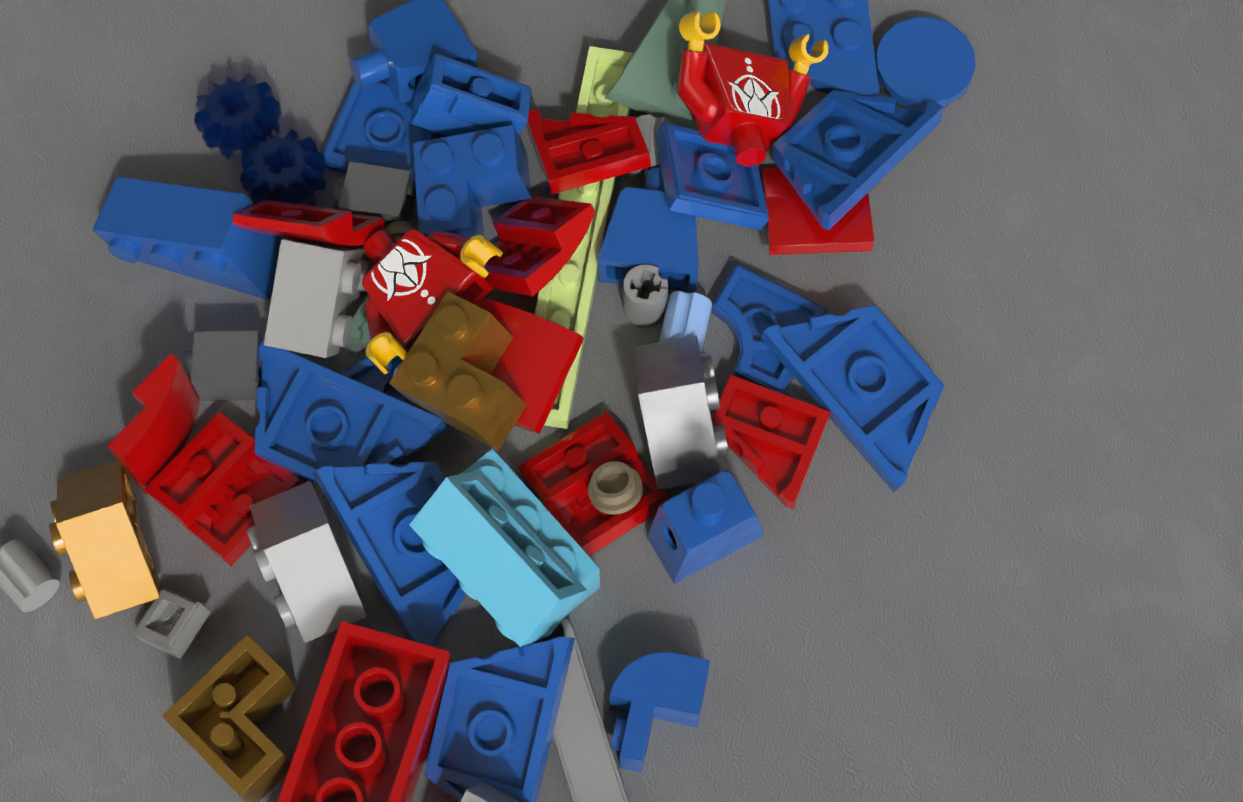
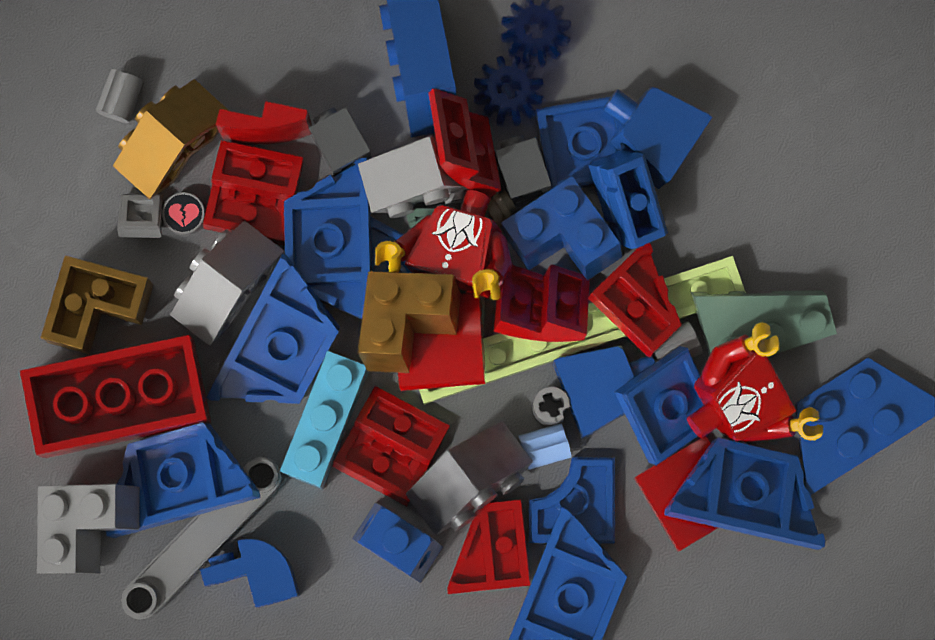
camera: 60 degrees right, 15 degrees up
(200, 575) = (183, 214): none -> tile
(497, 558) = (285, 415): medium azure brick -> none
(615, 488) = (390, 464): dark tan plate -> none
(925, 62) = (862, 513): blue tile -> none

